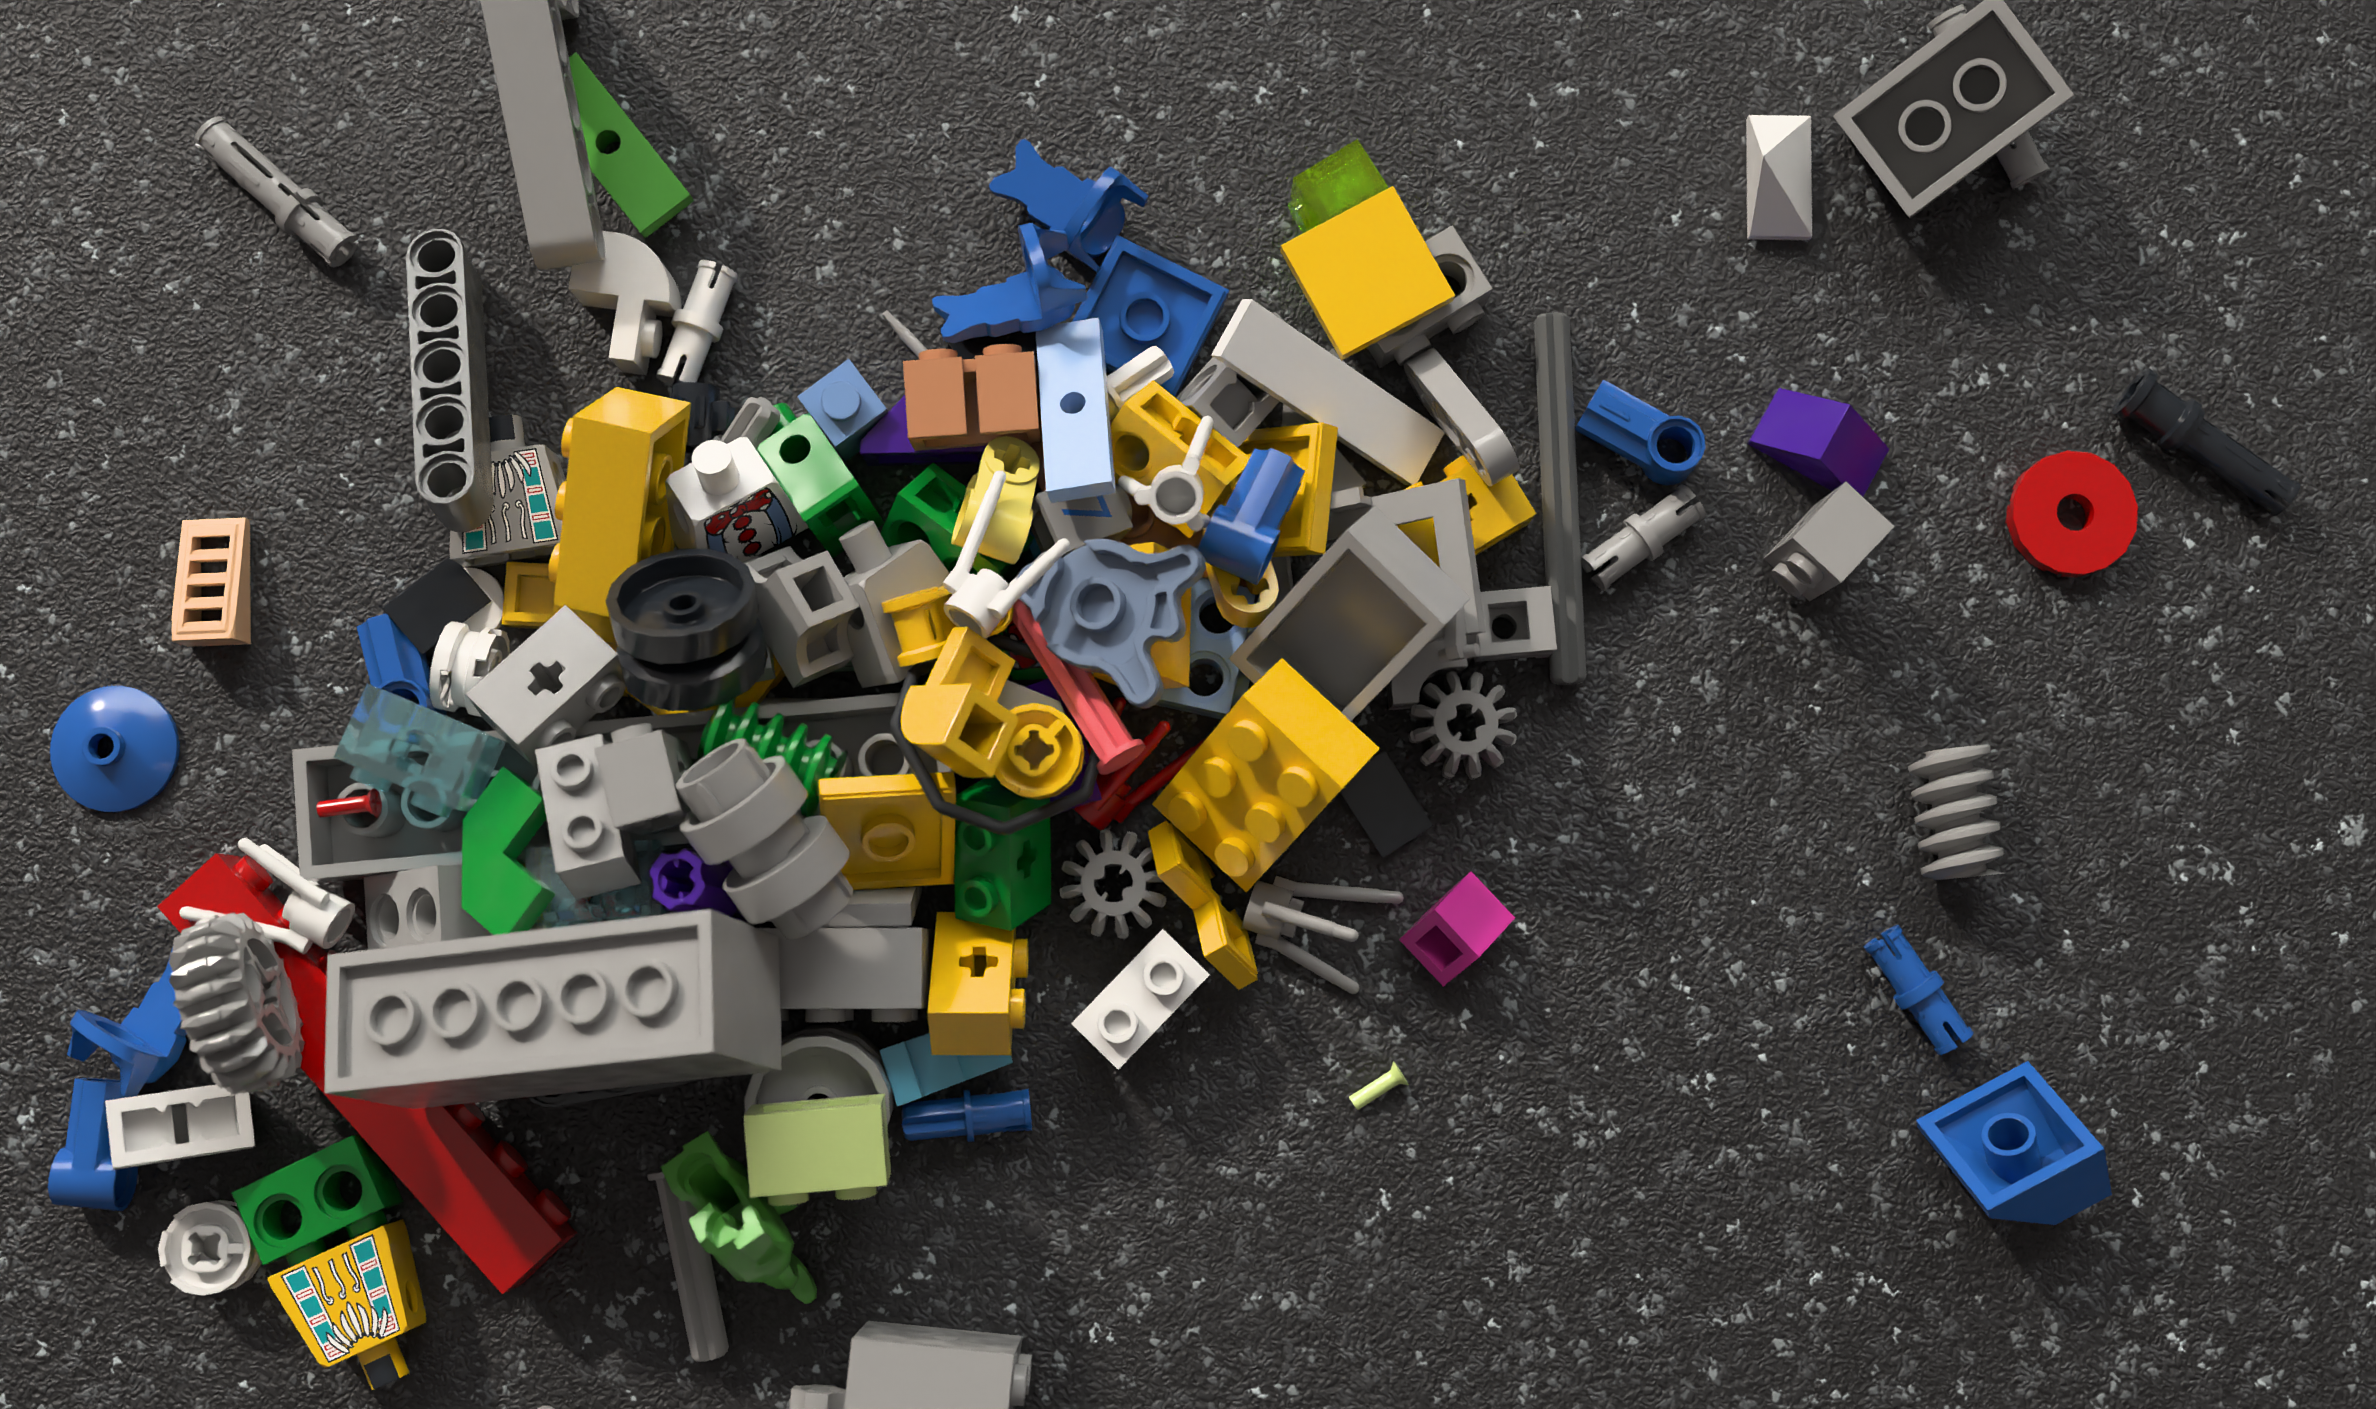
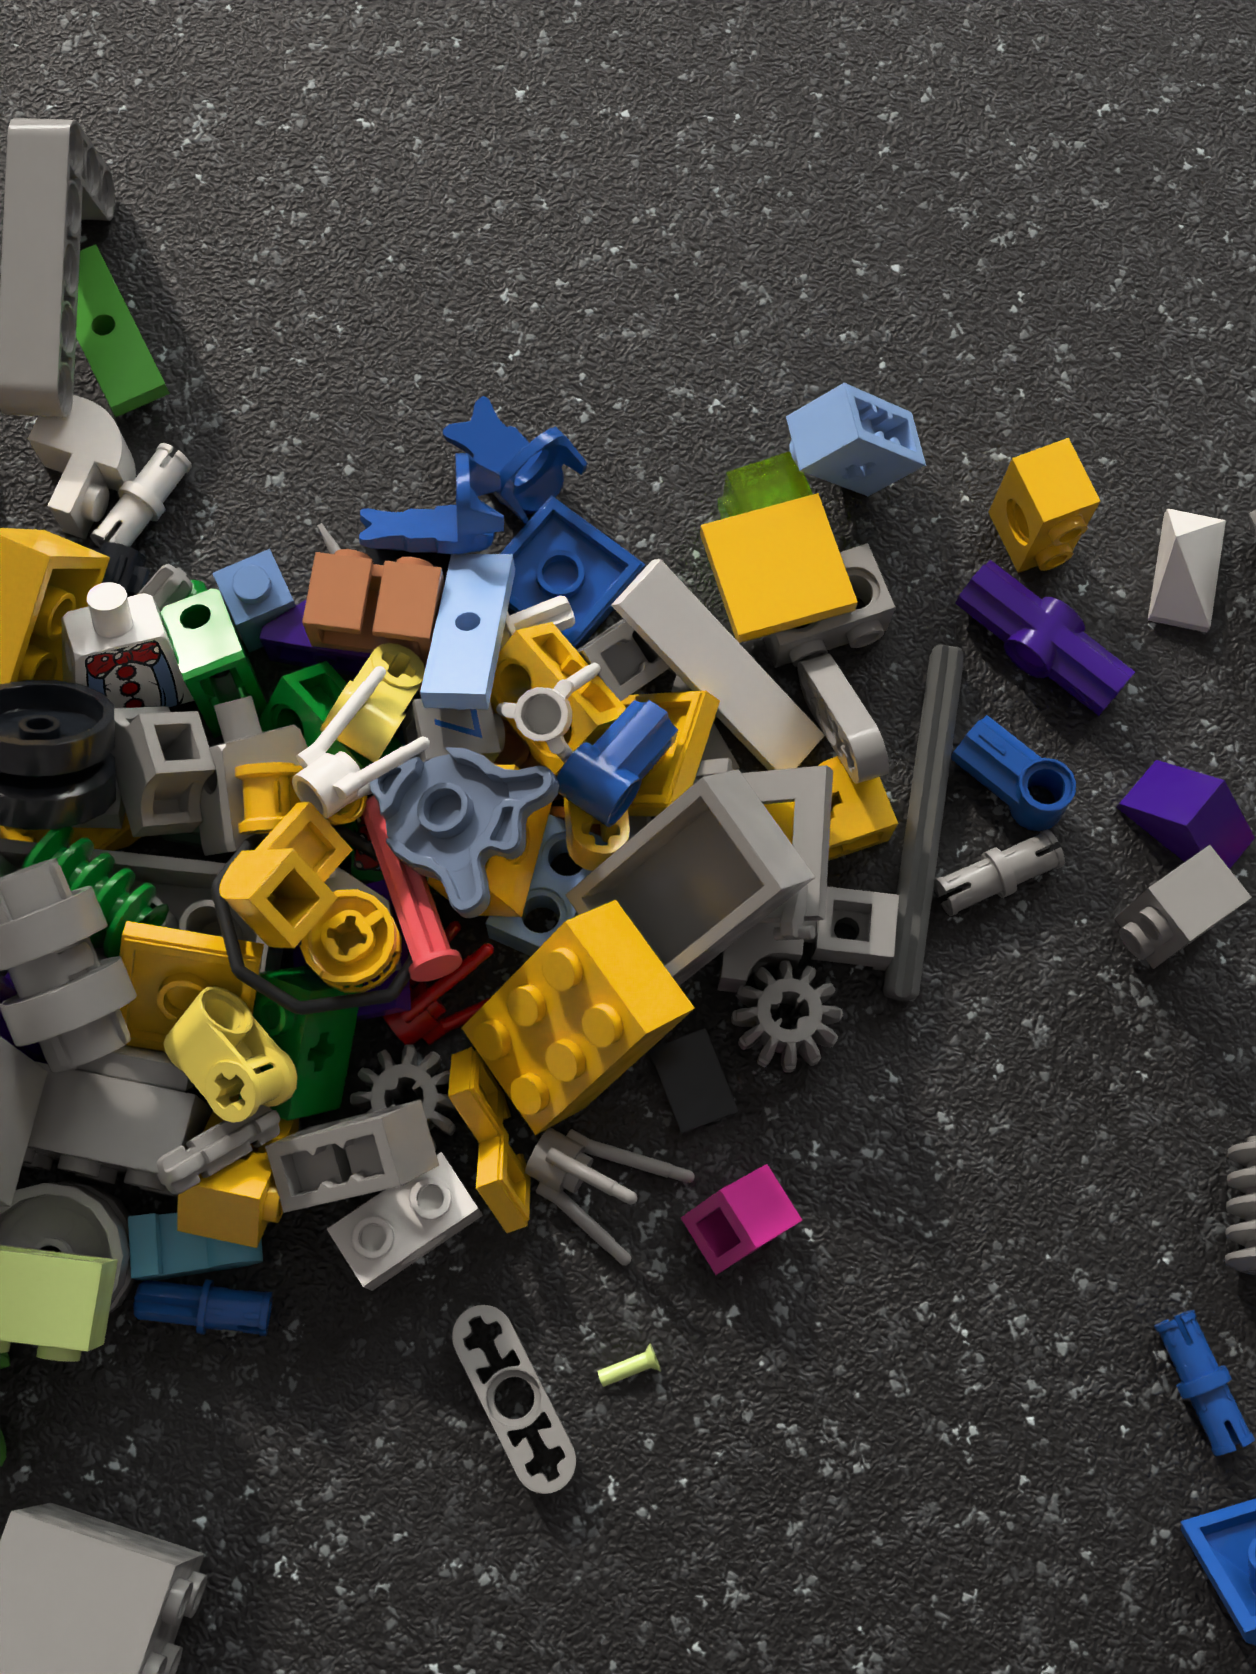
camera: 10 degrees right, 10 degrees down
(941, 883) = (222, 1055): none -> light yellow piece
(956, 972) = (216, 1149): none -> light grey axle
(1082, 952) = (352, 1156): none -> light grey brick
(1296, 1185) = (552, 1436): none -> light grey beam
(1418, 117) = (855, 440): none -> light blue brick
(1624, 149) = (1043, 506): none -> yellow brick
(1647, 284) = (1044, 637): none -> dark purple piece

